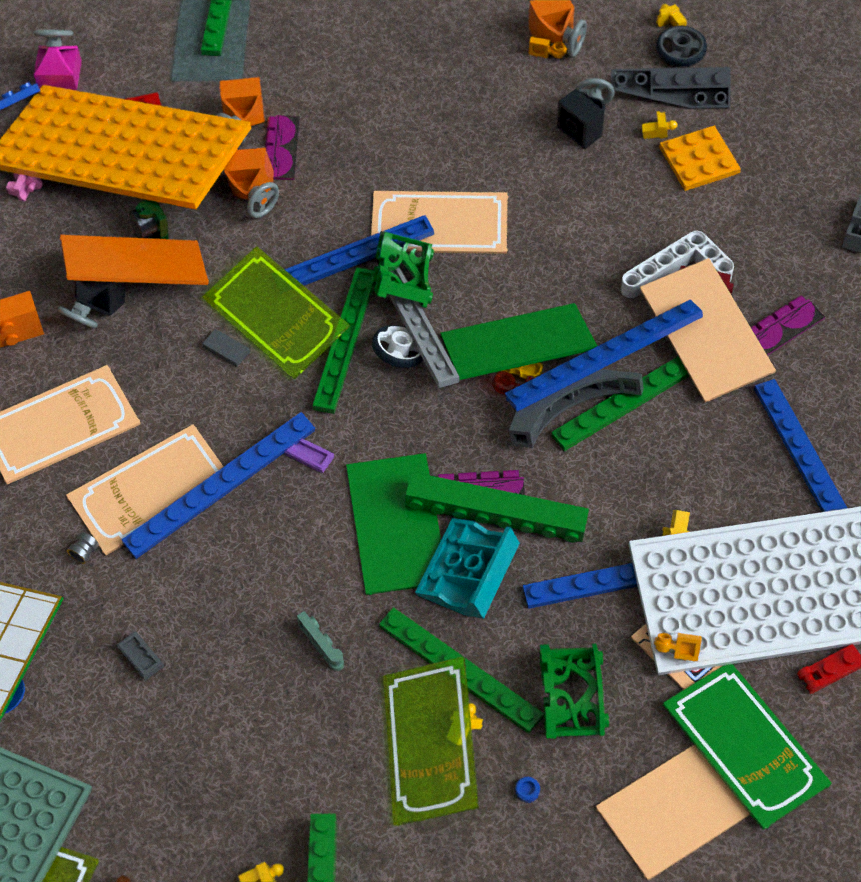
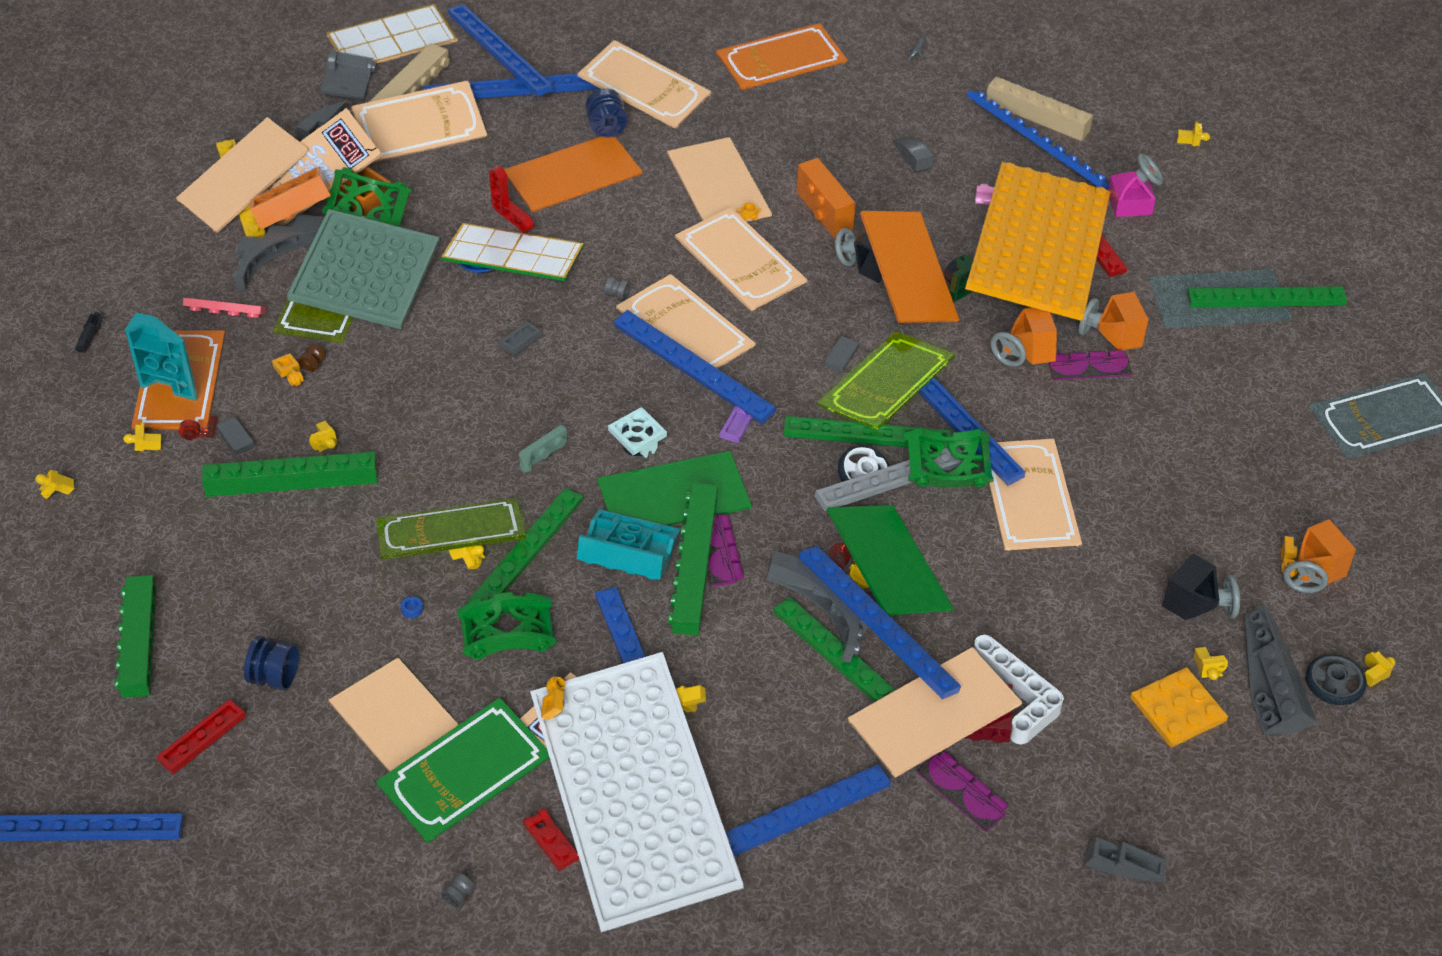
camera: 80 degrees right, 10 degrees down
(319, 544) = (638, 437): none -> light aqua piece

